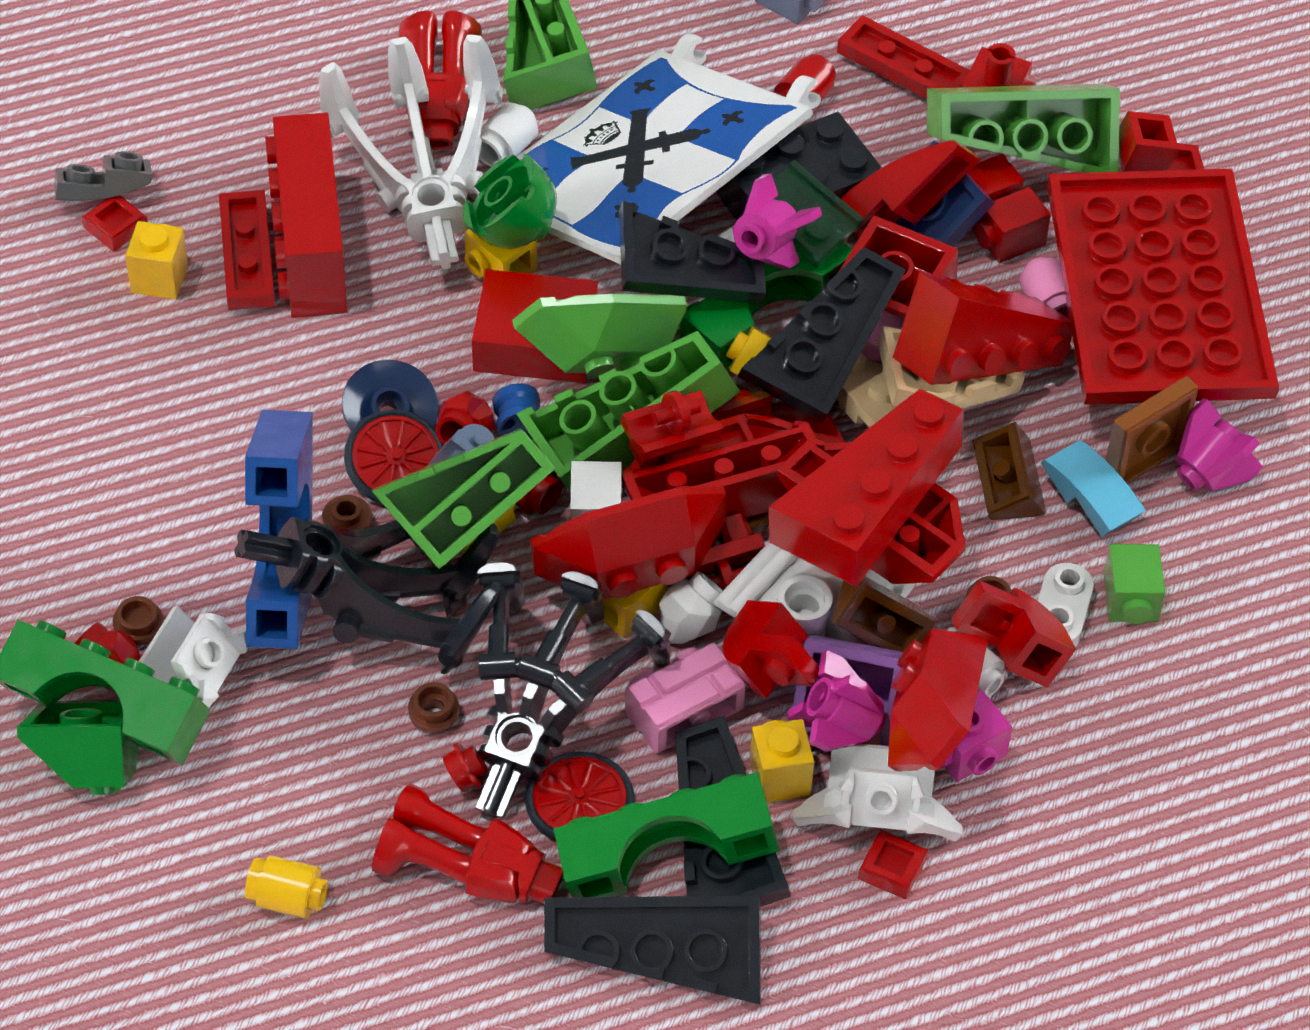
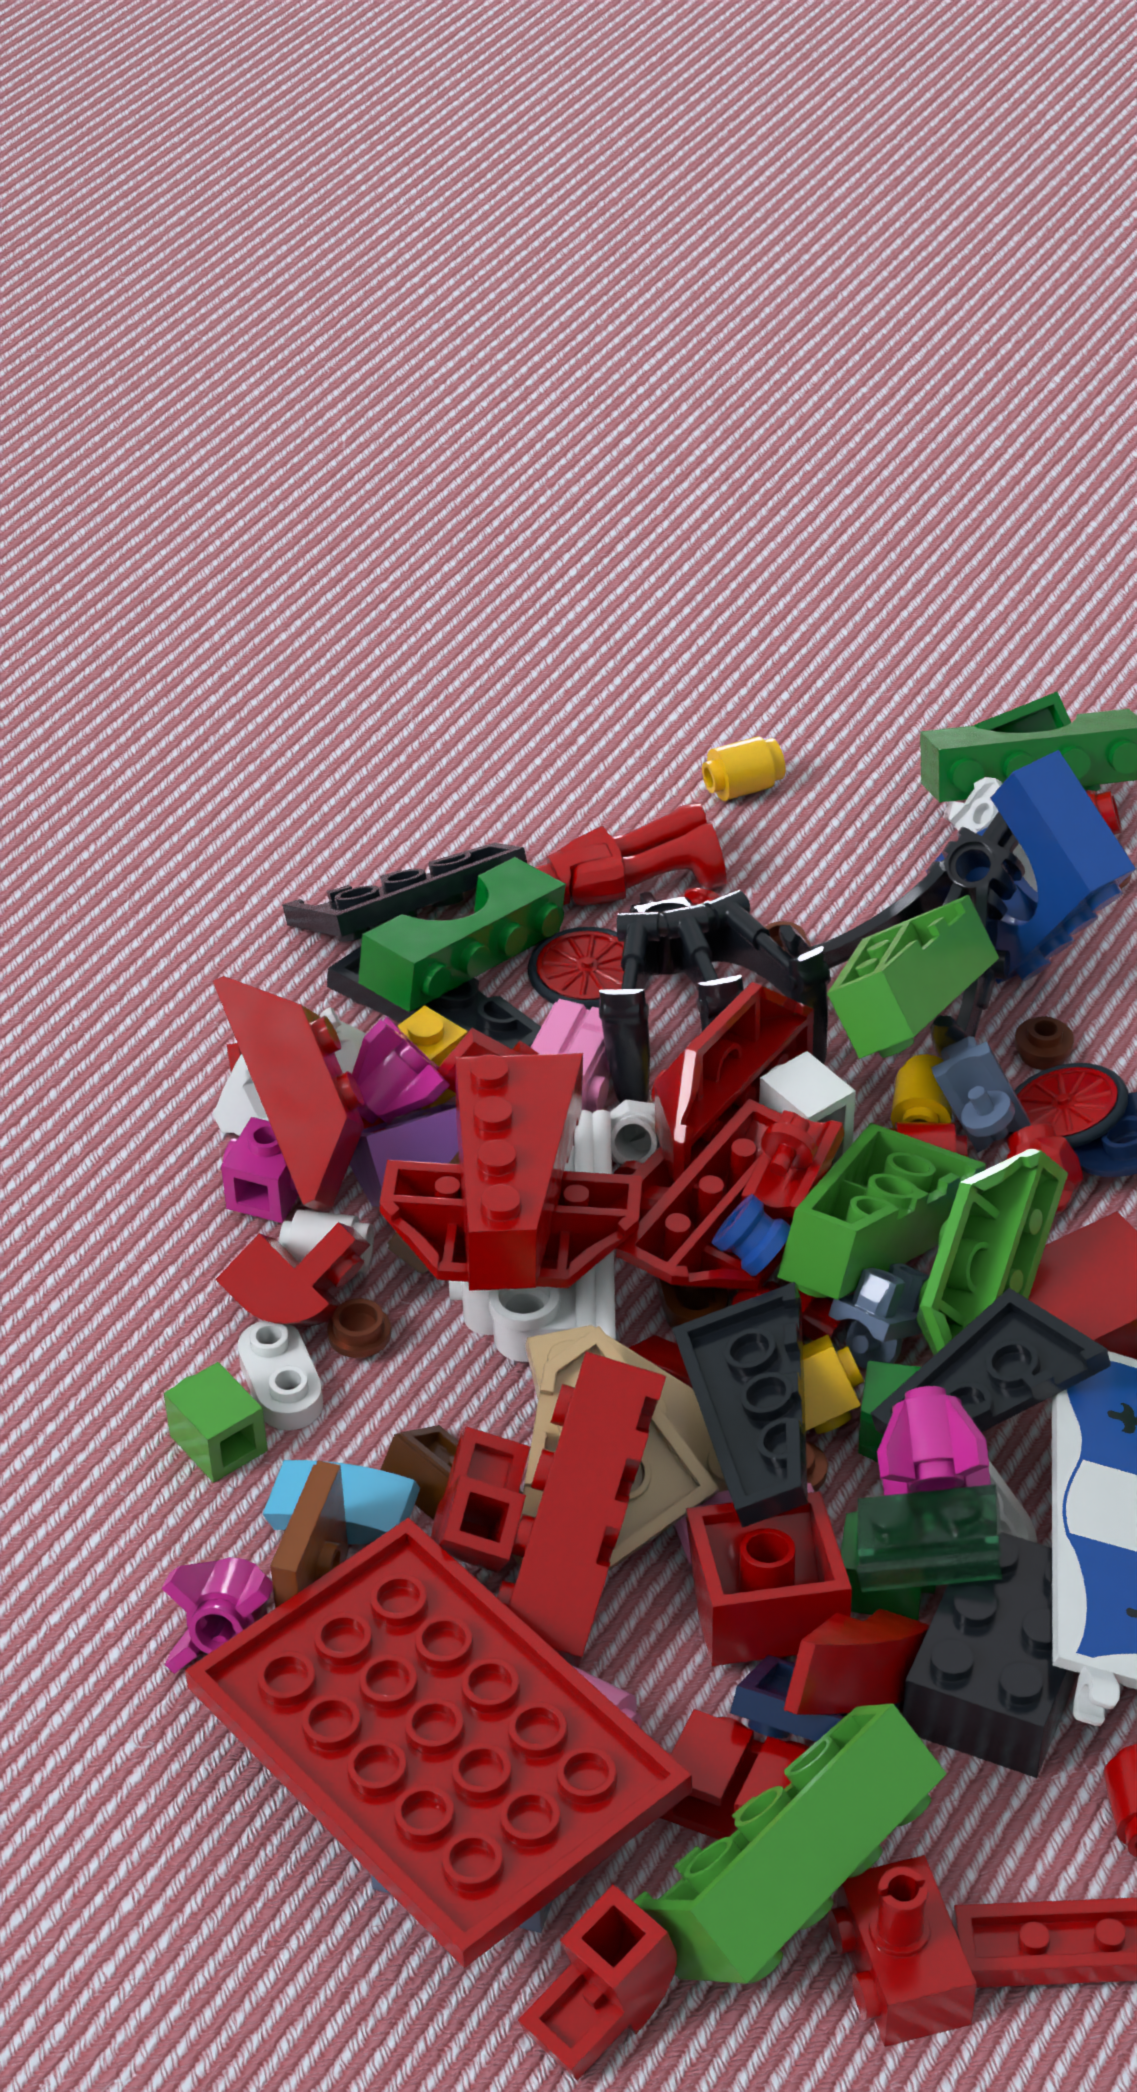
camera: 145 degrees right, 10 degrees down
(729, 399) = (752, 1235): none -> blue wheel
(1040, 392) = (482, 1500): none -> red brick

